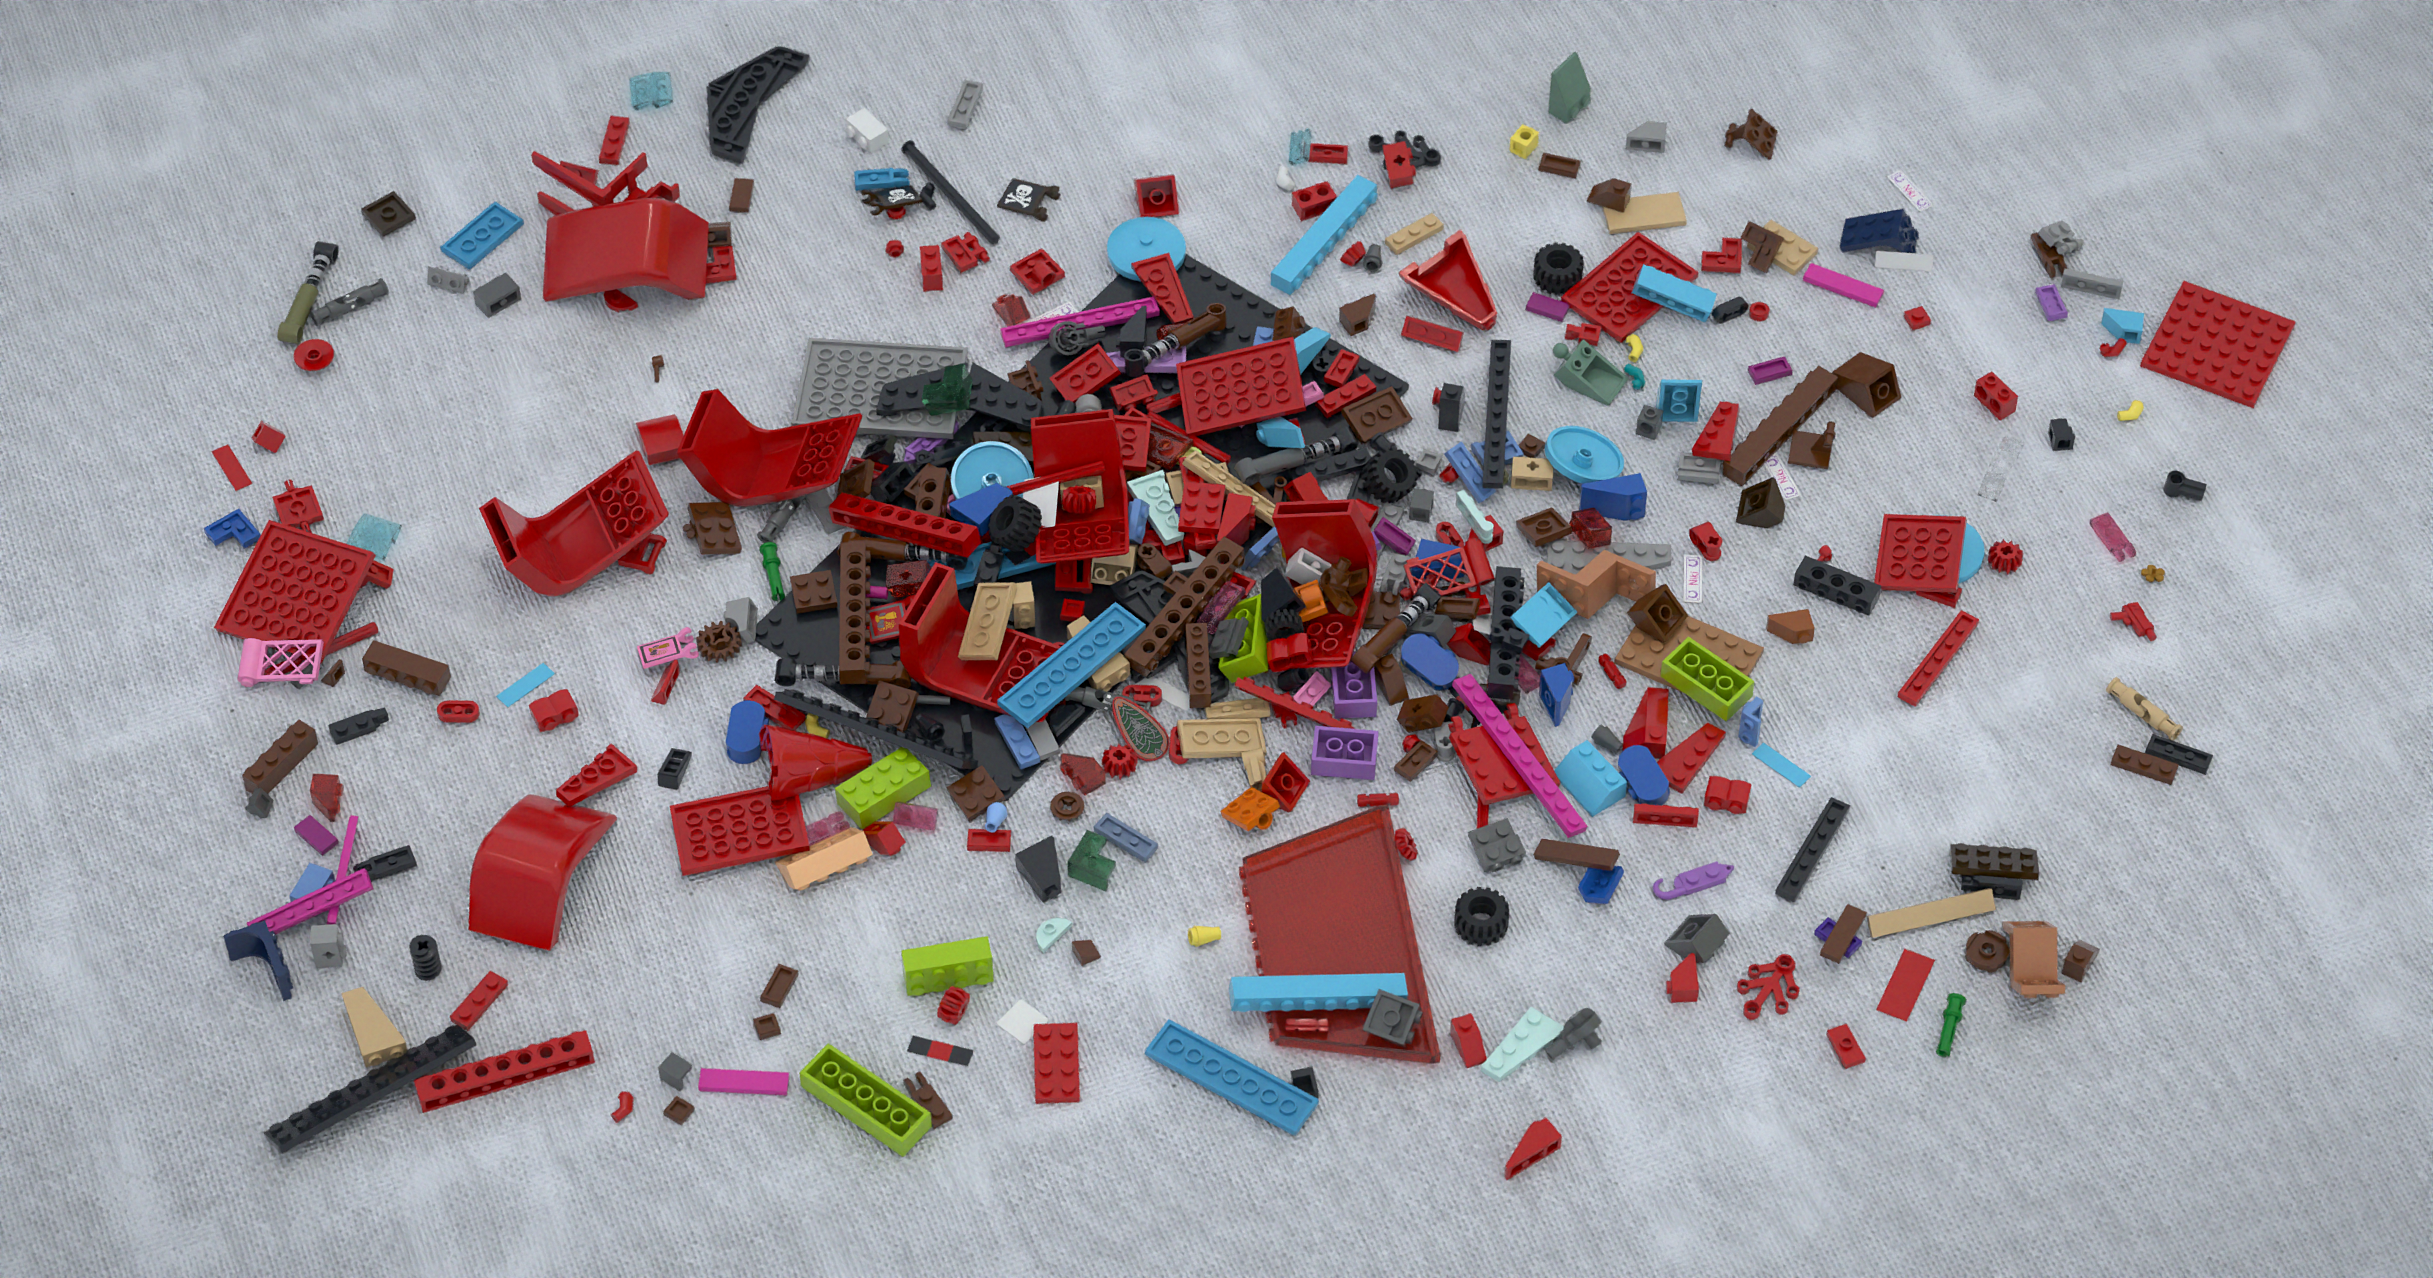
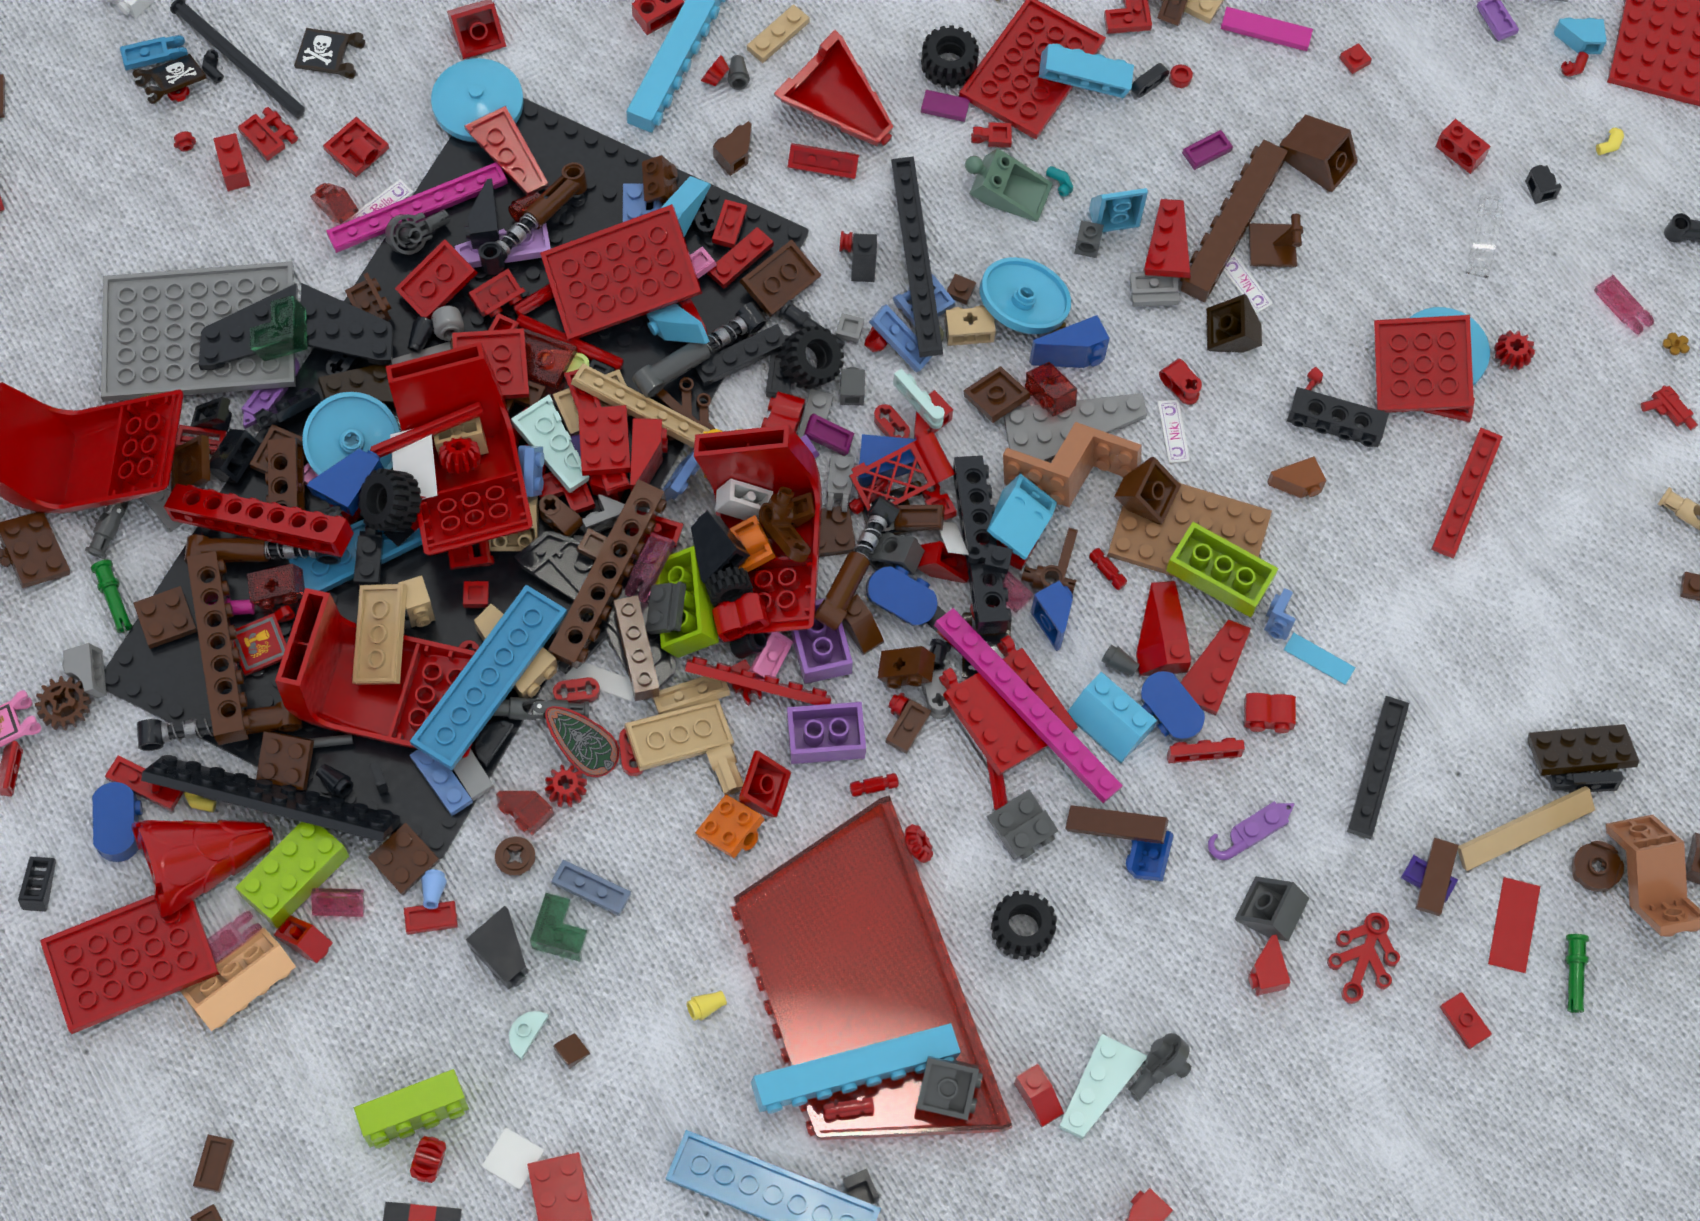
camera: 15 degrees left, 15 degrees up
(1304, 489) = (721, 400): red brick -> none
(1637, 347) = (1050, 135): light yellow arm -> none

